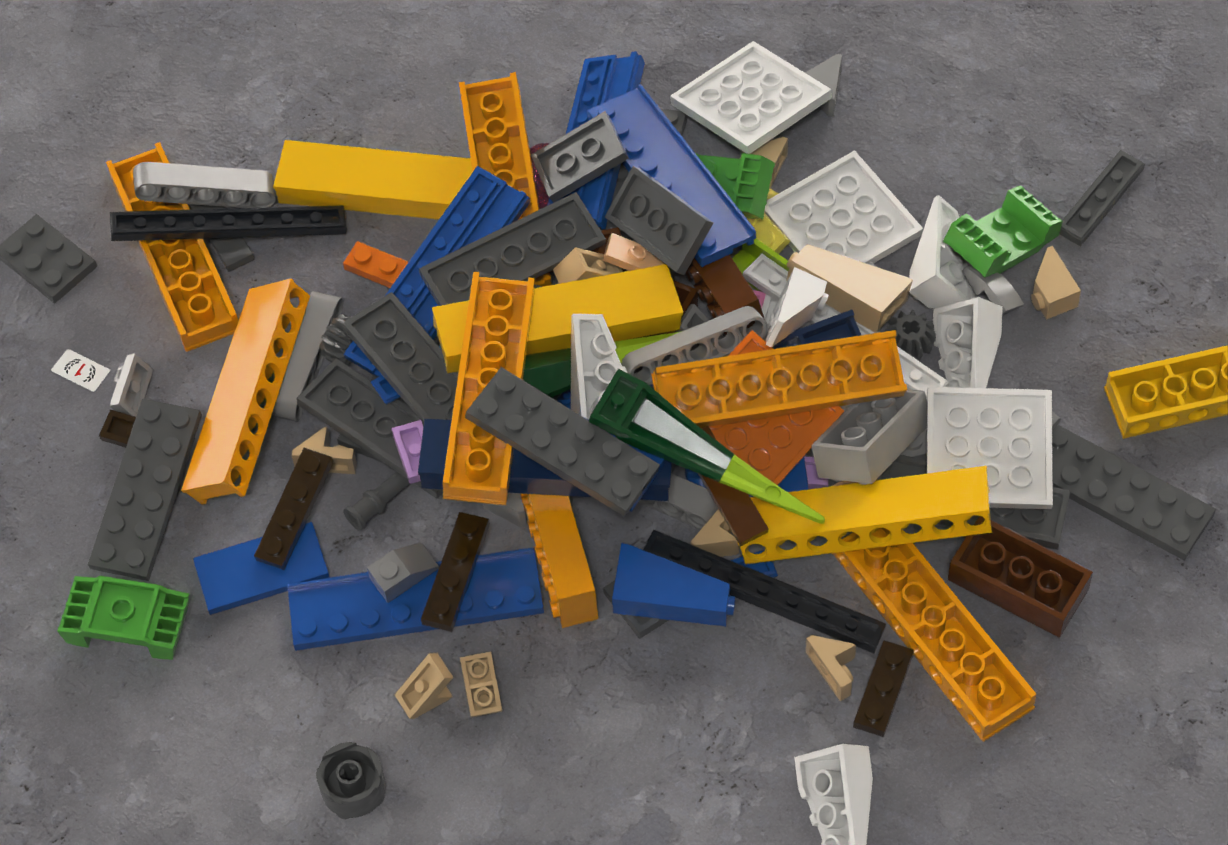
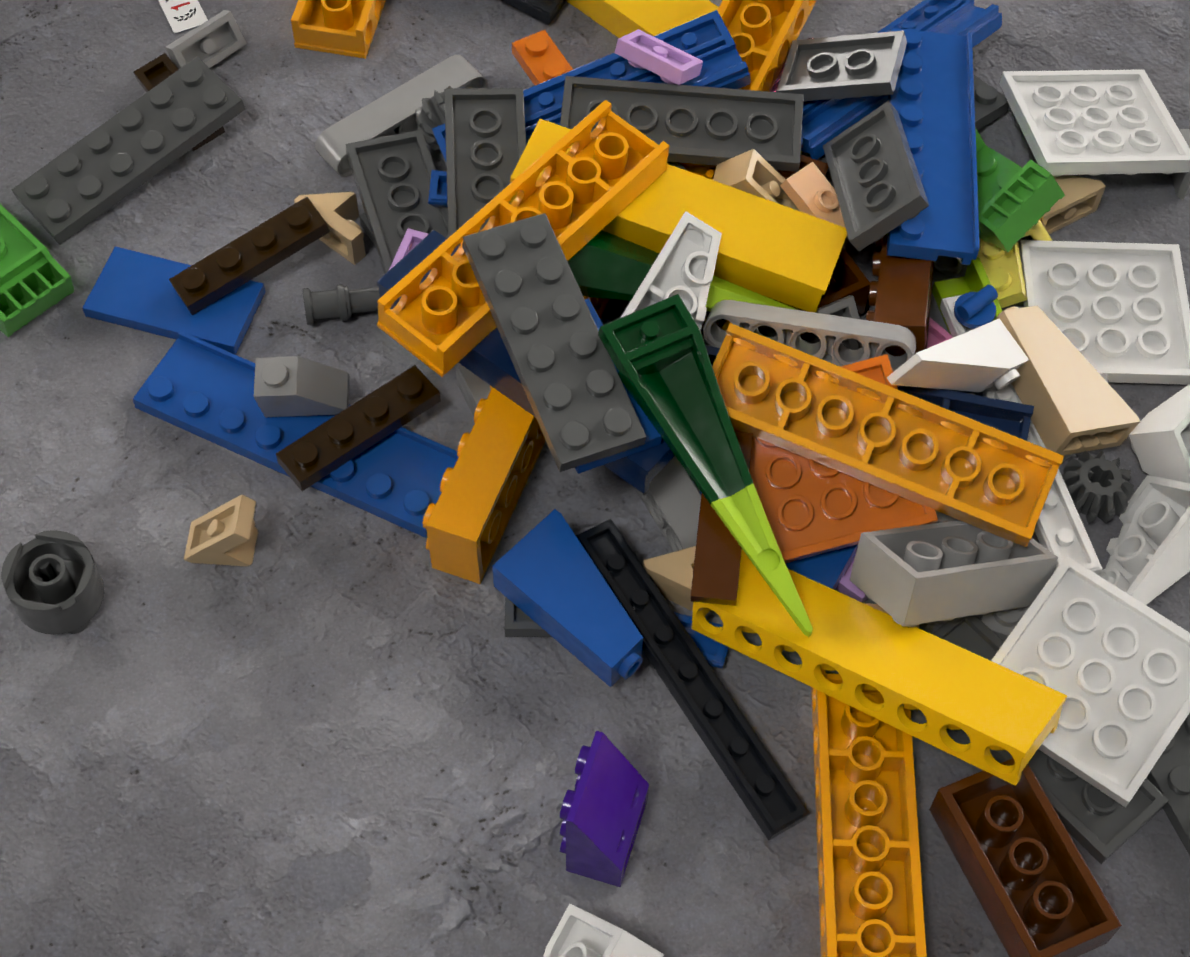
camera: 30 degrees right, 0 degrees up
(243, 388) = (342, 84): light orange tile -> none
(467, 220) = (658, 57): none -> lavender plate
(481, 684) = (289, 572): tan slope -> none
(769, 267) = (976, 308): none -> blue plate
(780, 696) = (602, 813): none -> dark purple slope
(830, 660) = (707, 810): tan slope -> none
(883, 688) = (746, 892): dark brown plate -> none

